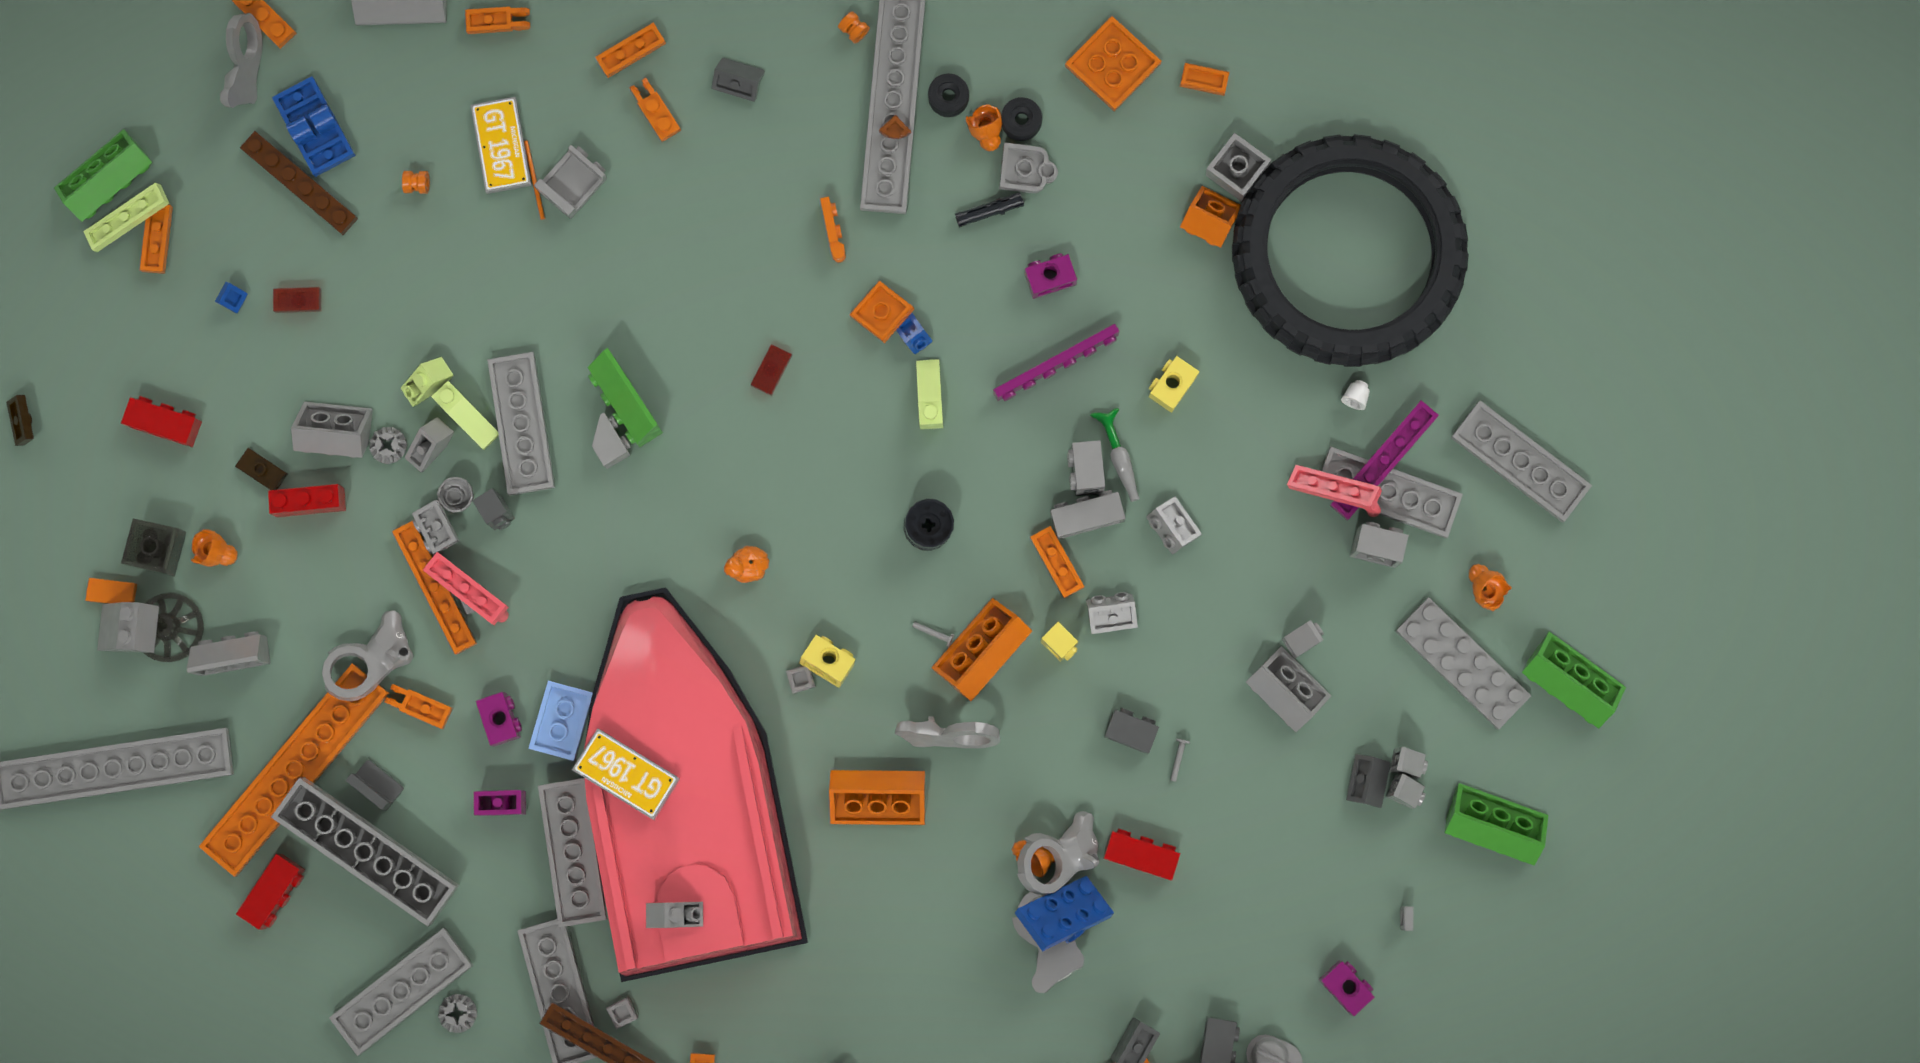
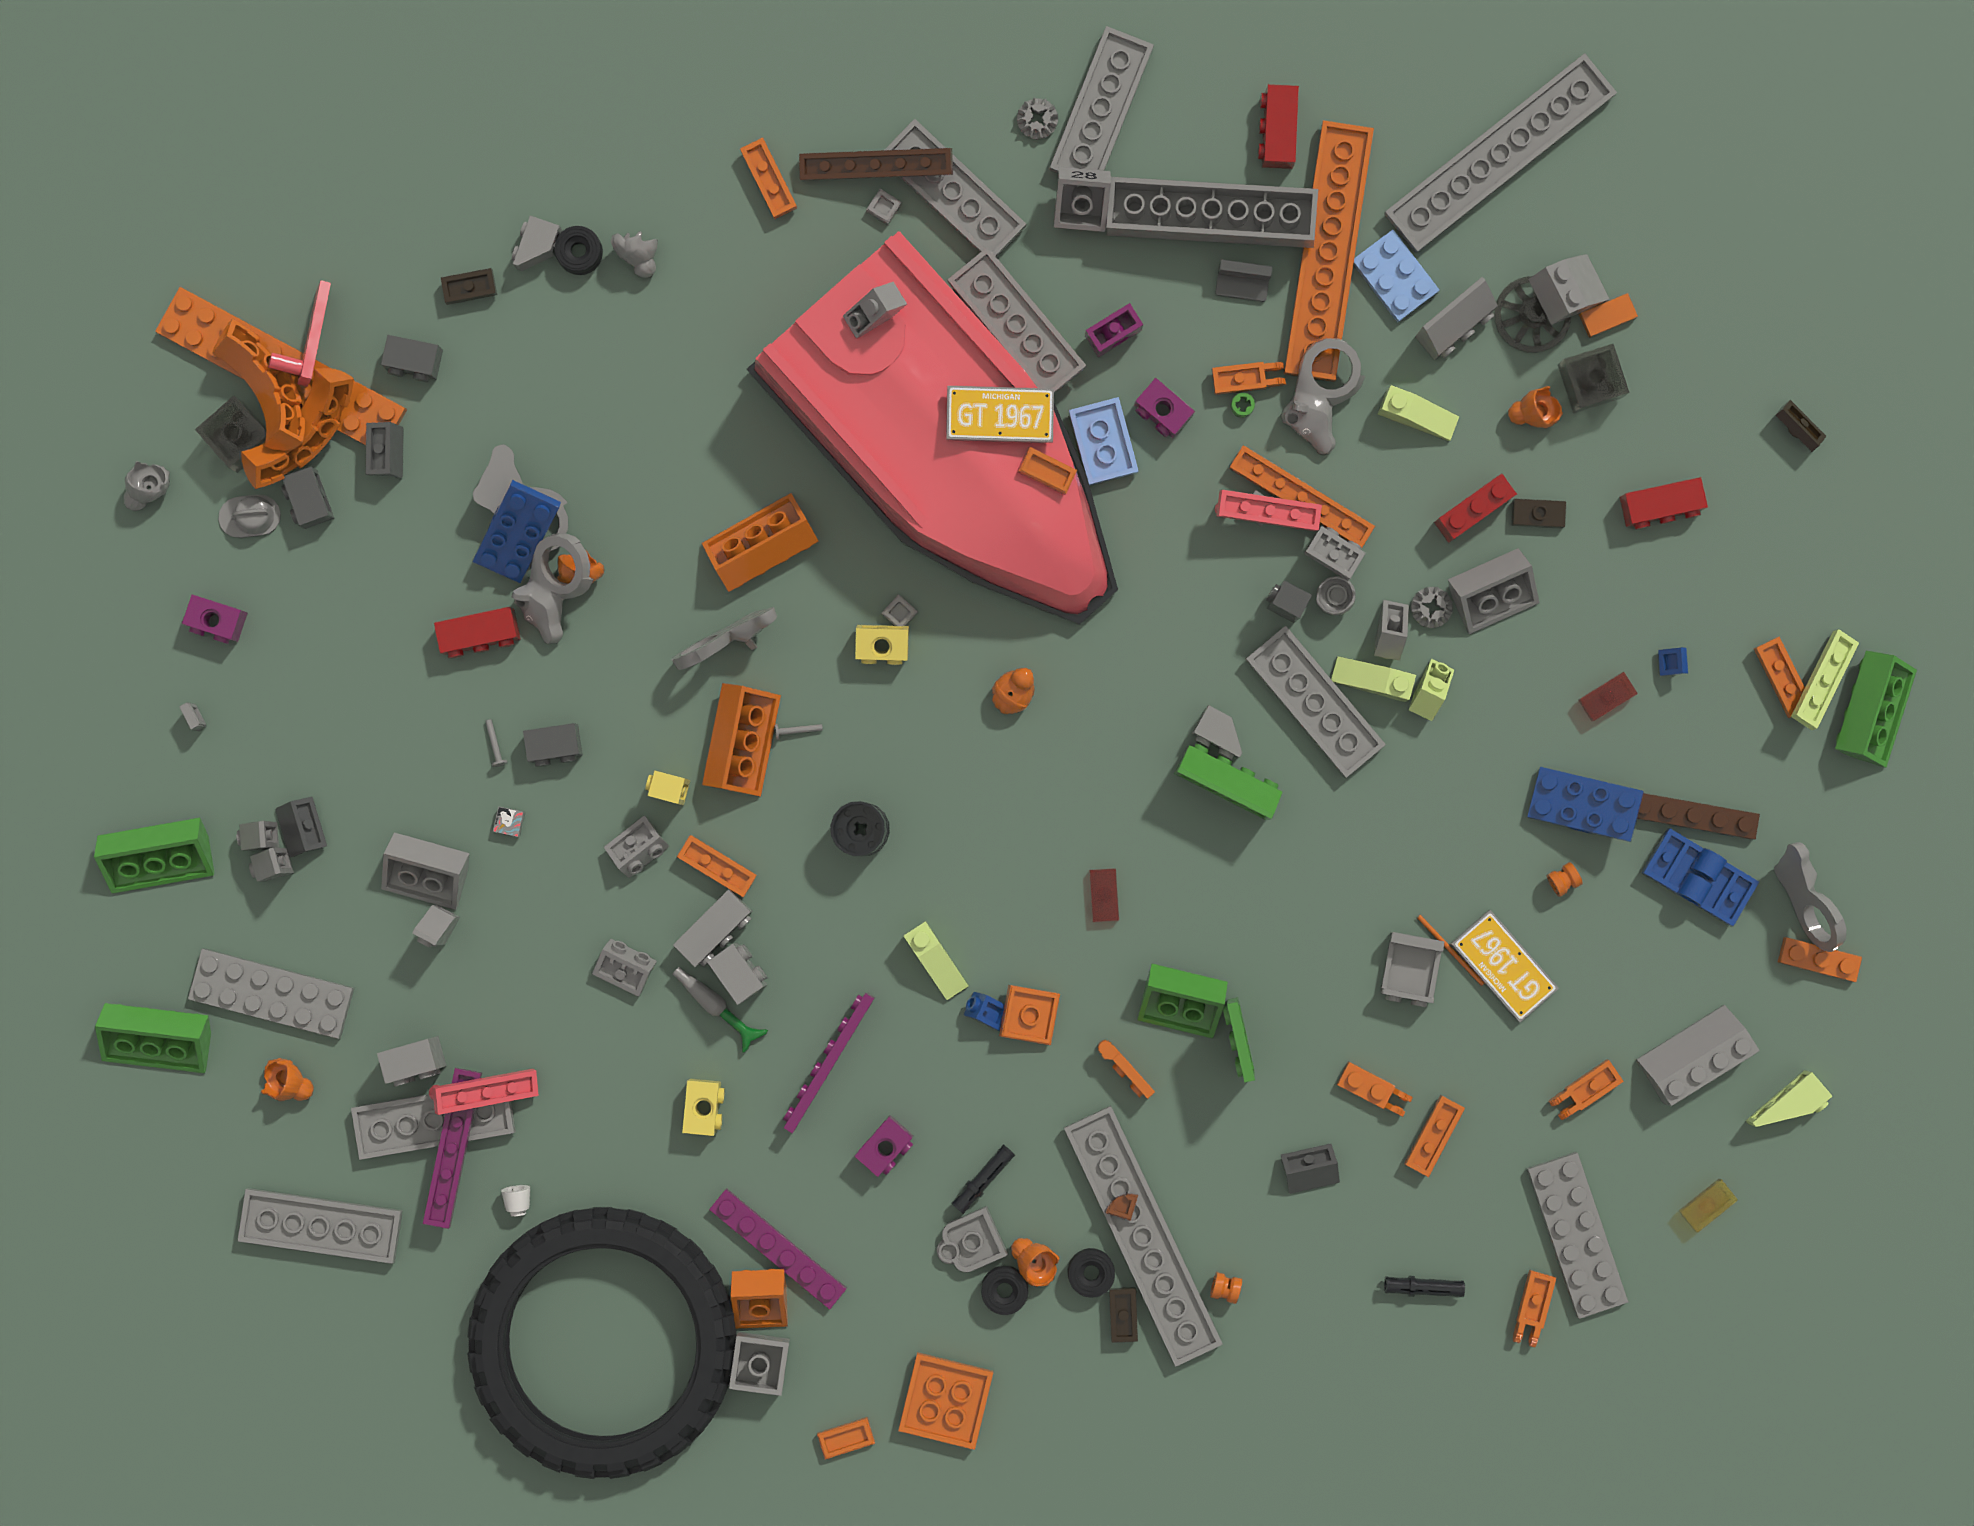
camera: 145 degrees right, 5 degrees up
(255, 719) = (1395, 276): none -> light blue plate
(305, 601) = (1417, 413): none -> yellowish green slope
(364, 227) = (1585, 804): none -> blue plate
(437, 694) = (1236, 400): none -> bright green bush
(461, 922) = (1082, 199): none -> light grey brick
(616, 710) = (1047, 470): none -> orange tile
(732, 198) = (1239, 1040): none -> bright green plate
(758, 255) = (1182, 1001): none -> bright green slope
(942, 51) = (1123, 1314): none -> dark brown plate
(1176, 246) = (778, 1248): none -> magenta plate
(1201, 690) = (509, 821): none -> tile

